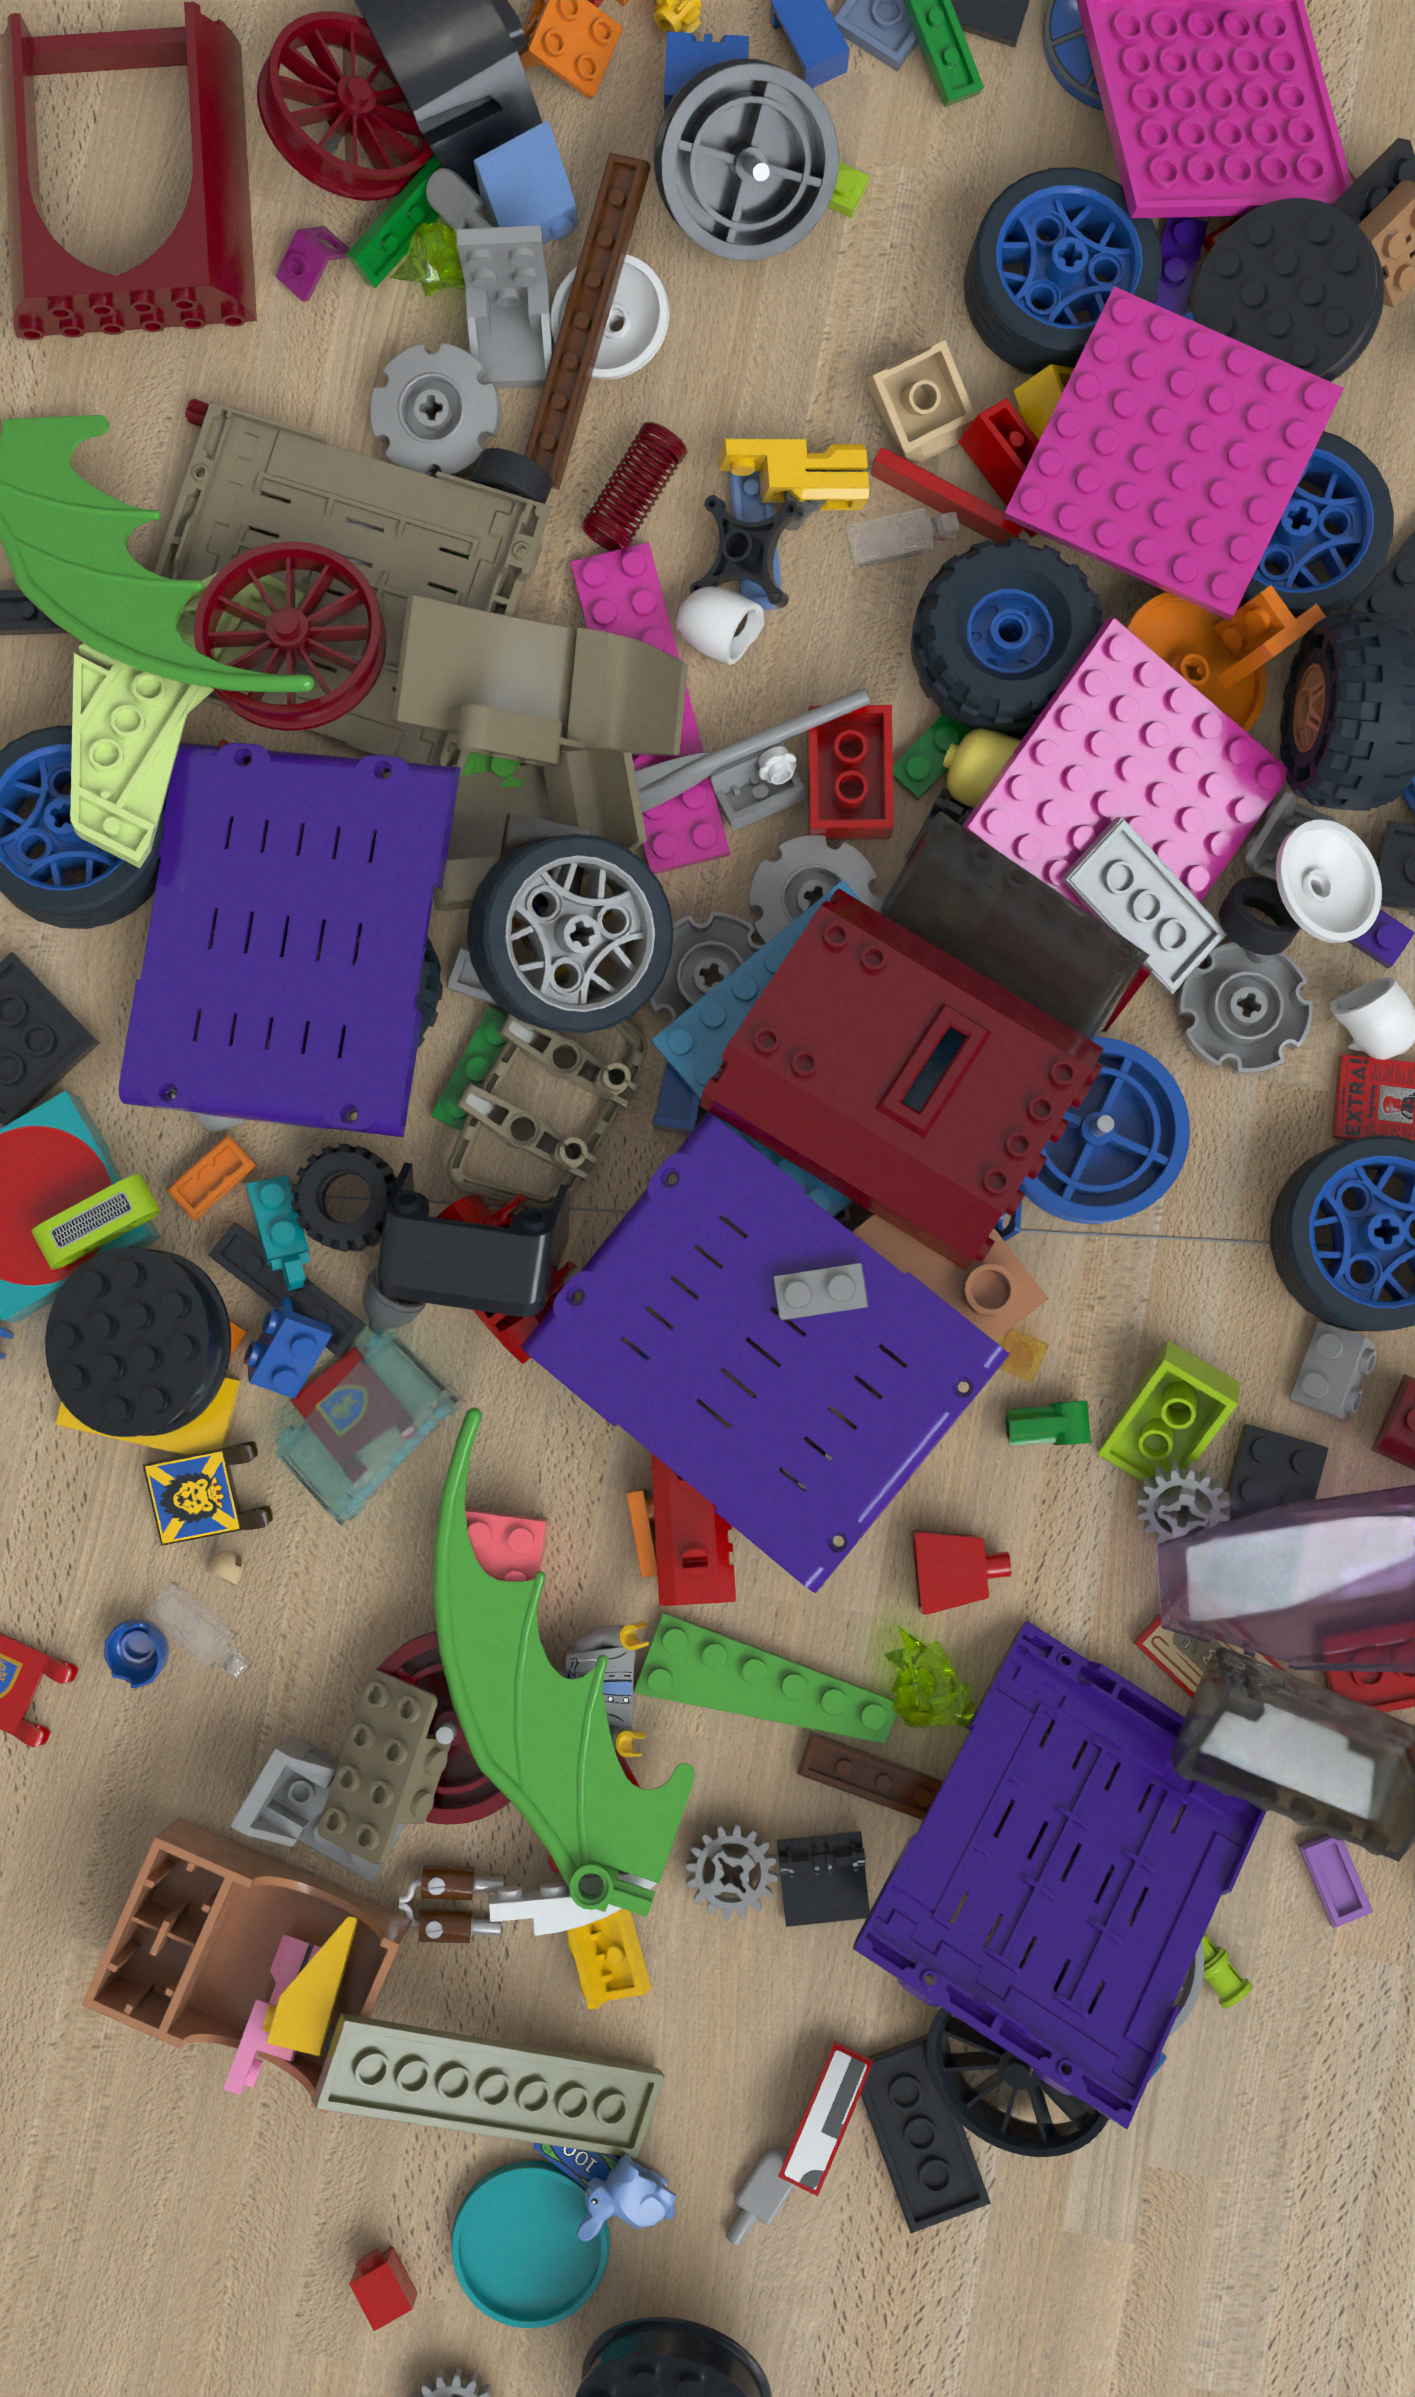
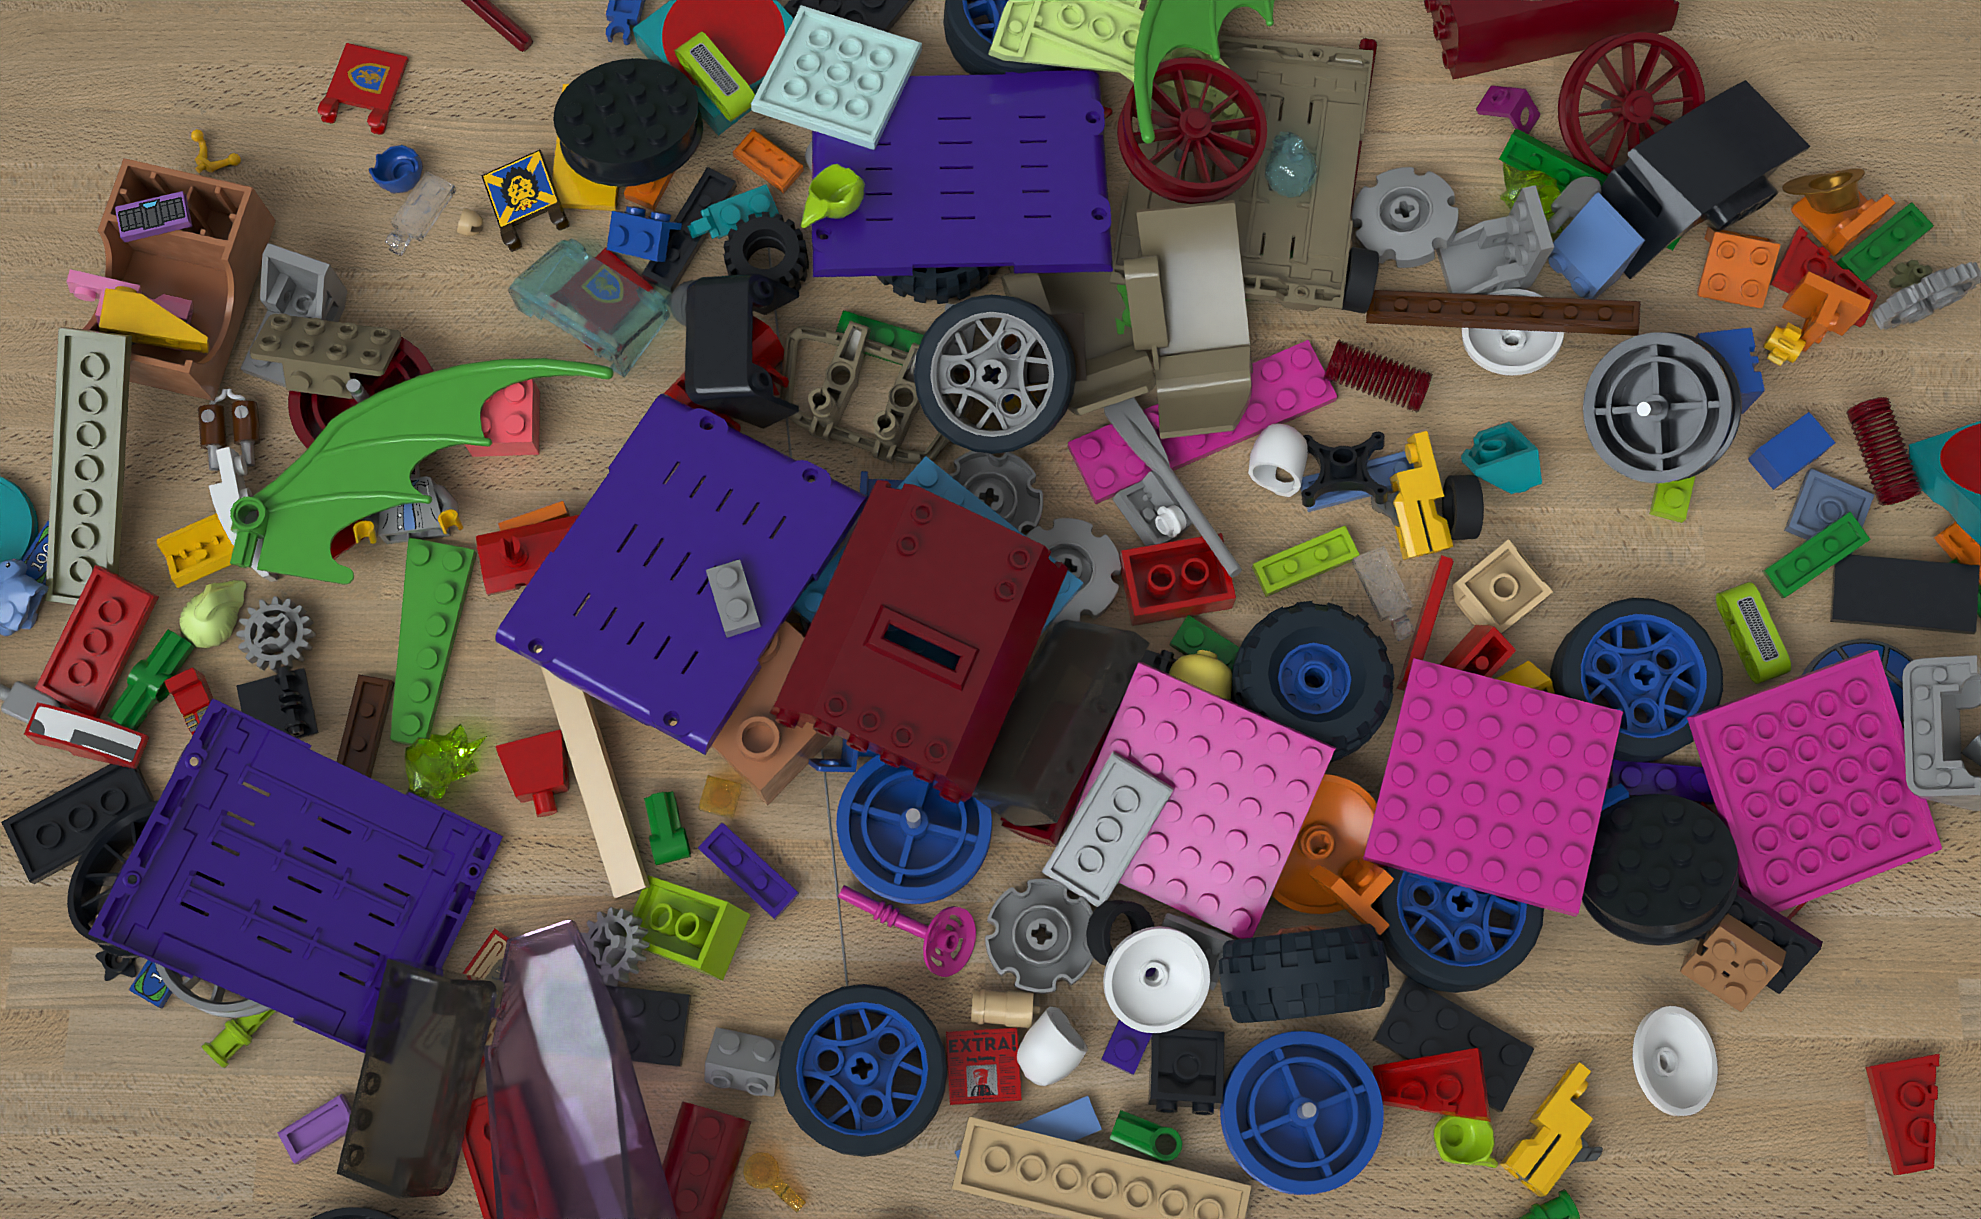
camera: 80 degrees right, 10 degrees down
(79, 1865) = (204, 164): none -> yellow piece
(127, 1067) = (837, 77): none -> light aqua tile
(175, 1971) = (153, 216): none -> tile
(305, 1089) = (833, 195): none -> lime piece
(351, 529) = (1290, 166): none -> clear light blue hair
(692, 1947) = (212, 614): none -> yellowish green hair
(706, 2095) = (97, 642): none -> red tile
(762, 363) = (1504, 459): none -> teal slope
(764, 2032) = (147, 680): none -> green piece
(803, 1978) = (190, 695): none -> red leg
(819, 418) = (1463, 506): none -> black tyre
(847, 621) = (1305, 561): none -> lime plate
(997, 1496) = (597, 786): none -> tan tile
(1018, 133) = (1753, 632): none -> lime beam
(1114, 1335) = (748, 871): none -> dark purple plate
(1240, 1113) = (933, 936): none -> dark pink dish
(1319, 1067) = (1005, 1008): none -> tan piece

